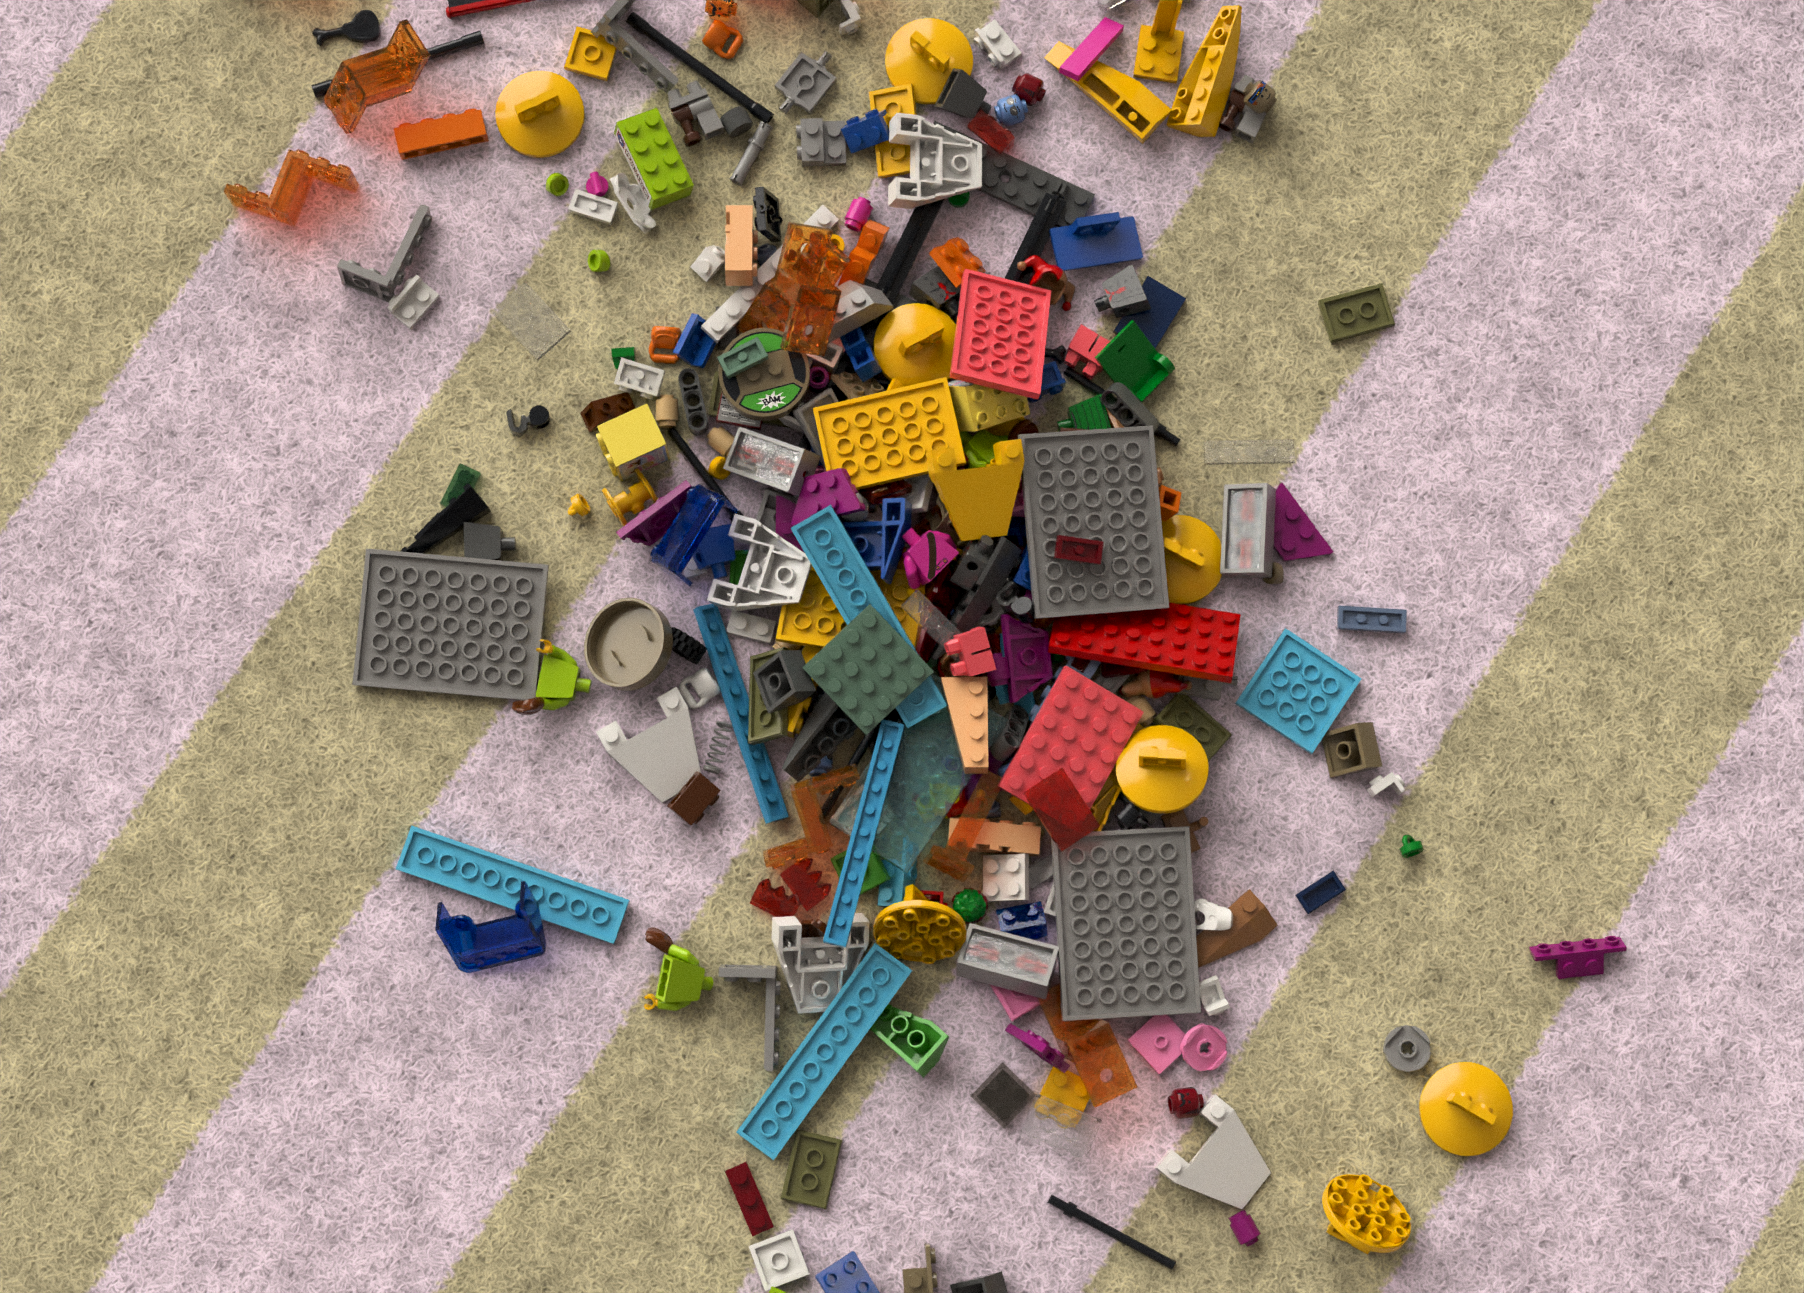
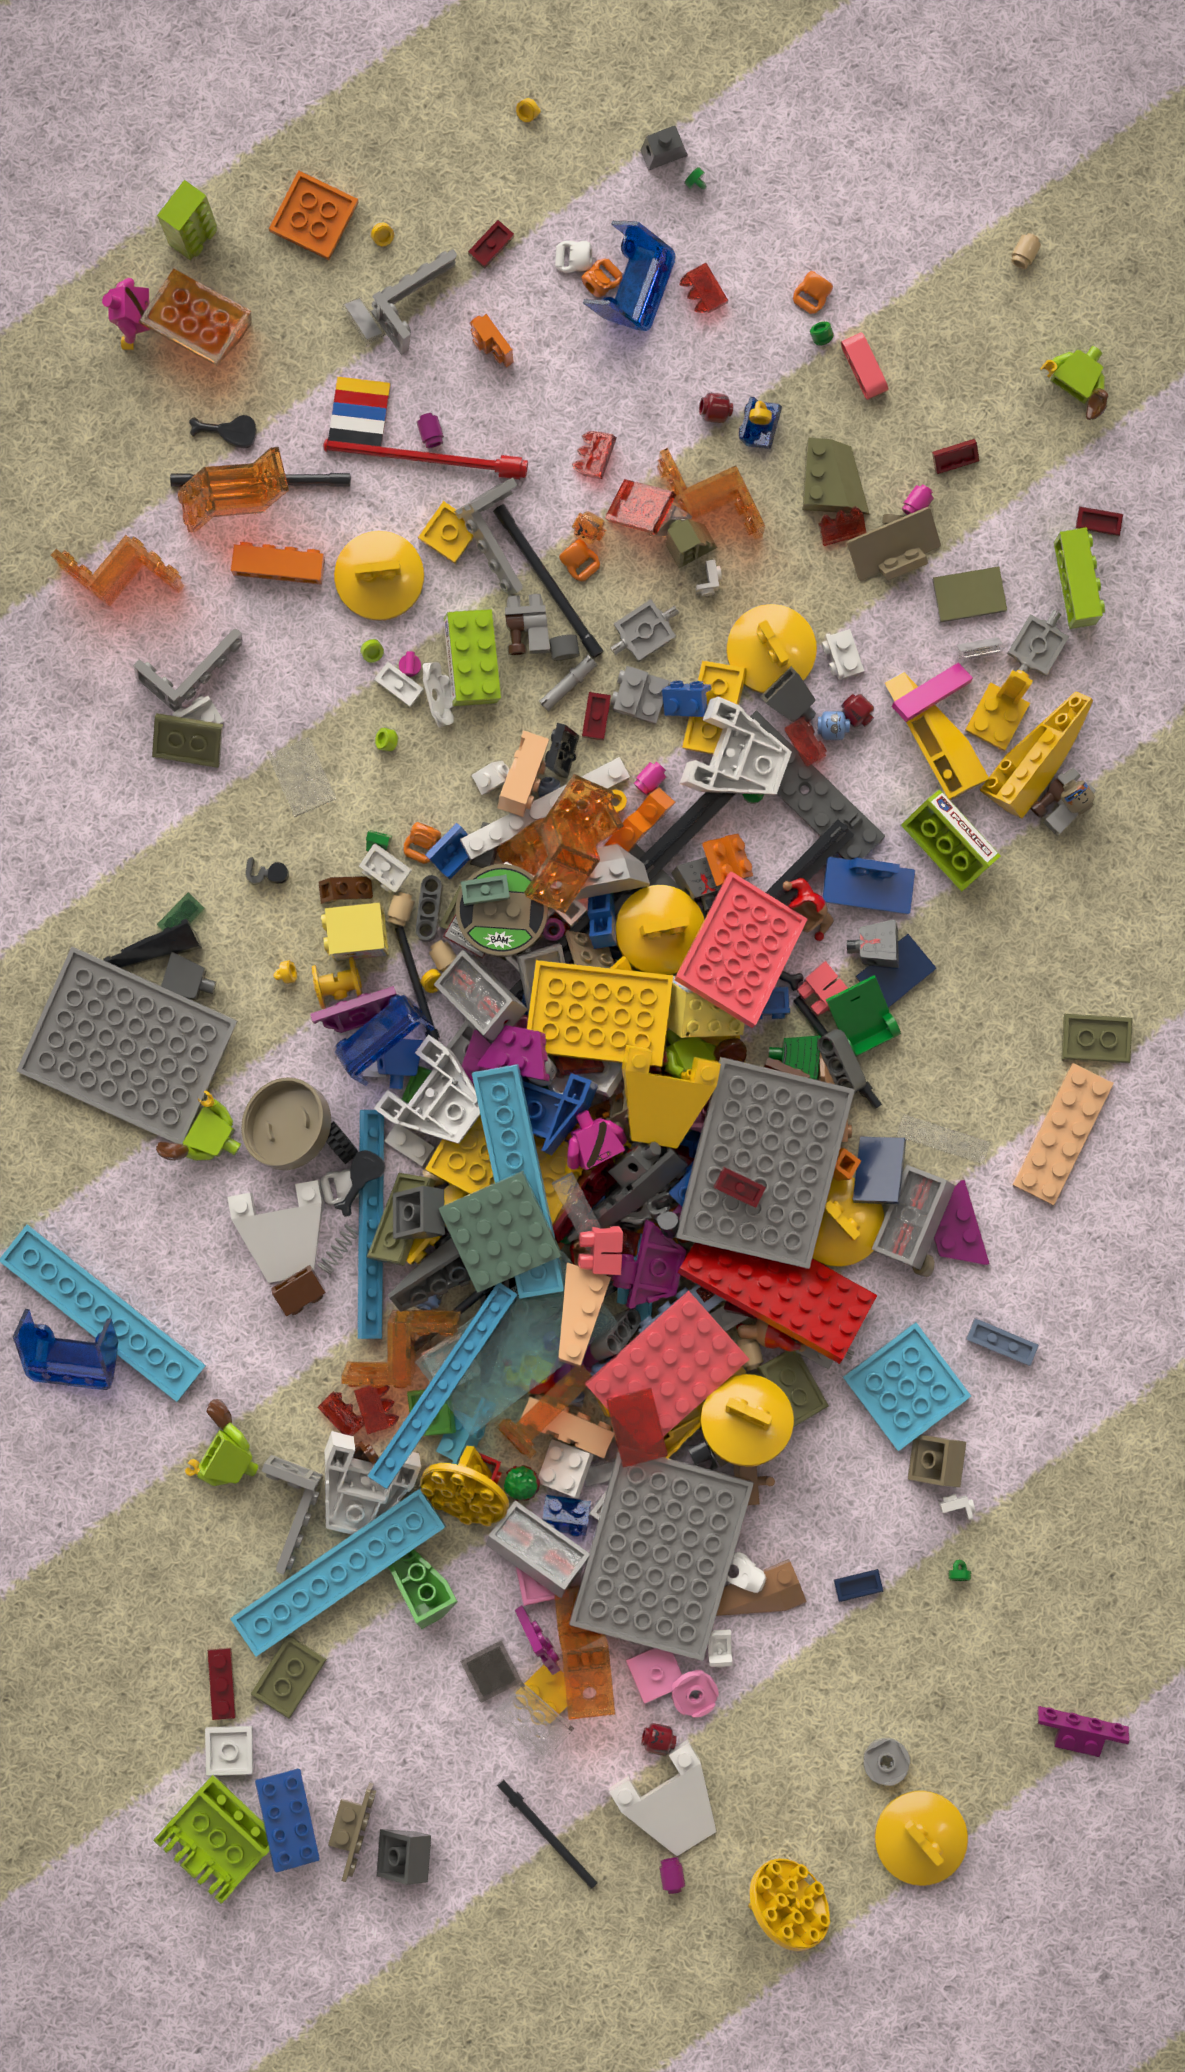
camera: 25 degrees right, 5 degrees up
(411, 322) = (187, 740): none -> olive tile
(717, 660) = (364, 1168): none -> black piece
(788, 174) = (596, 716): none -> dark red plate
(1157, 176) = (950, 840): none -> lime brick
(1201, 498) = (880, 1170): none -> tile
(1357, 410) = (1062, 1134): none -> light nougat plate

